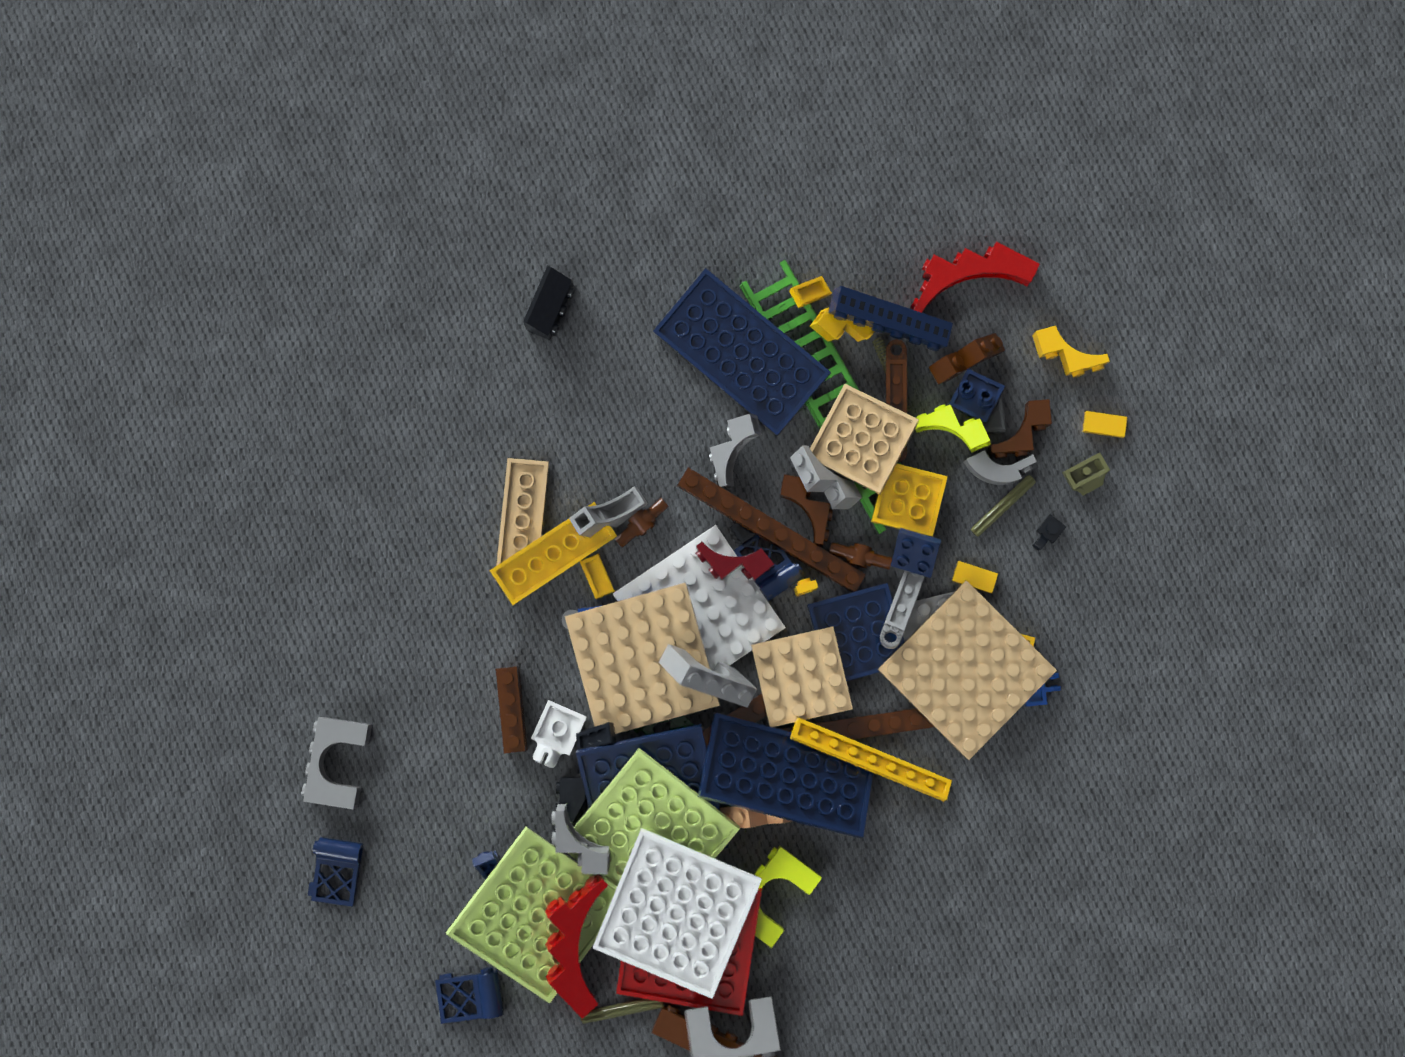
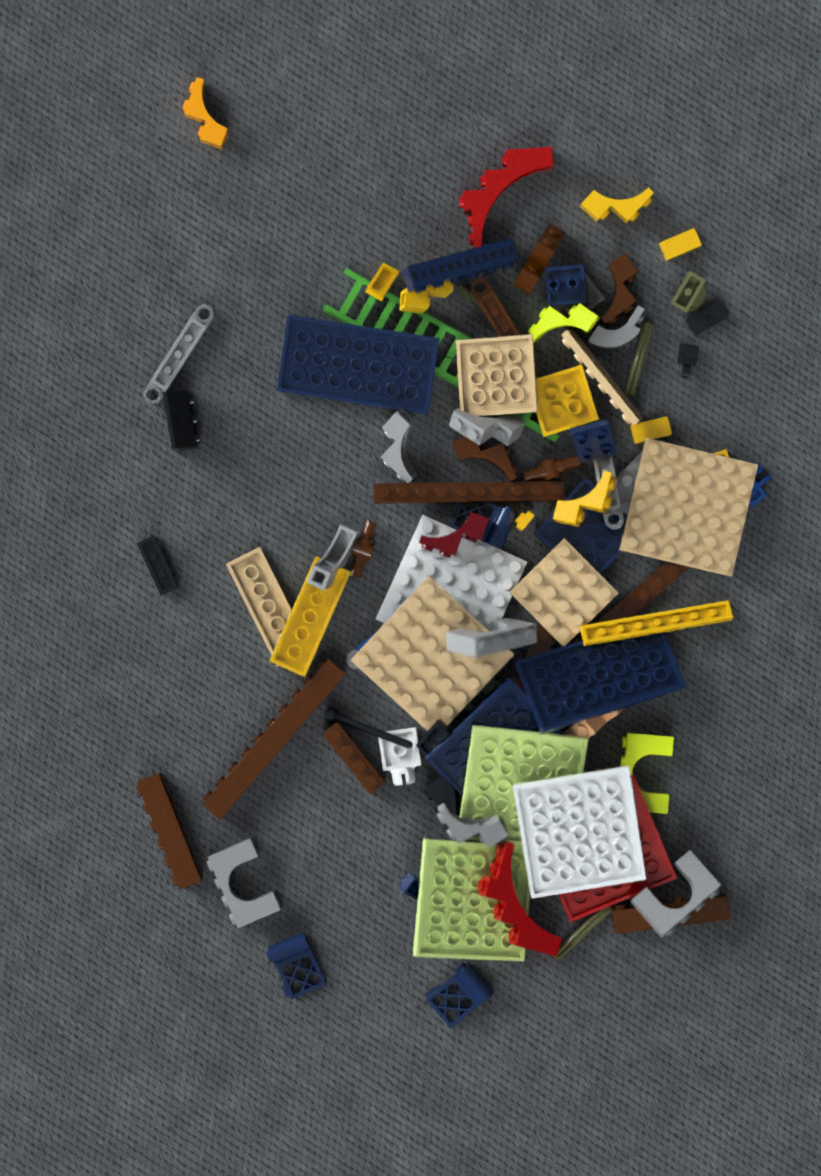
camera: 35 degrees left, 5 degrees up
(300, 671) = (170, 832): none -> reddish brown brick
(445, 422) = (157, 565): none -> black plate
(449, 646) = (273, 740): none -> reddish brown brick
(517, 658) = (334, 716): none -> black piece
(586, 244) = (178, 354): none -> light grey plate
(597, 576) = (354, 613): yellow tile -> none
(736, 38) = (212, 132): none -> light orange arch
(886, 610) = (597, 500): none -> yellow arch
(957, 491) = (597, 371): none -> tan plate
(1088, 506) = (706, 318): none -> black plate

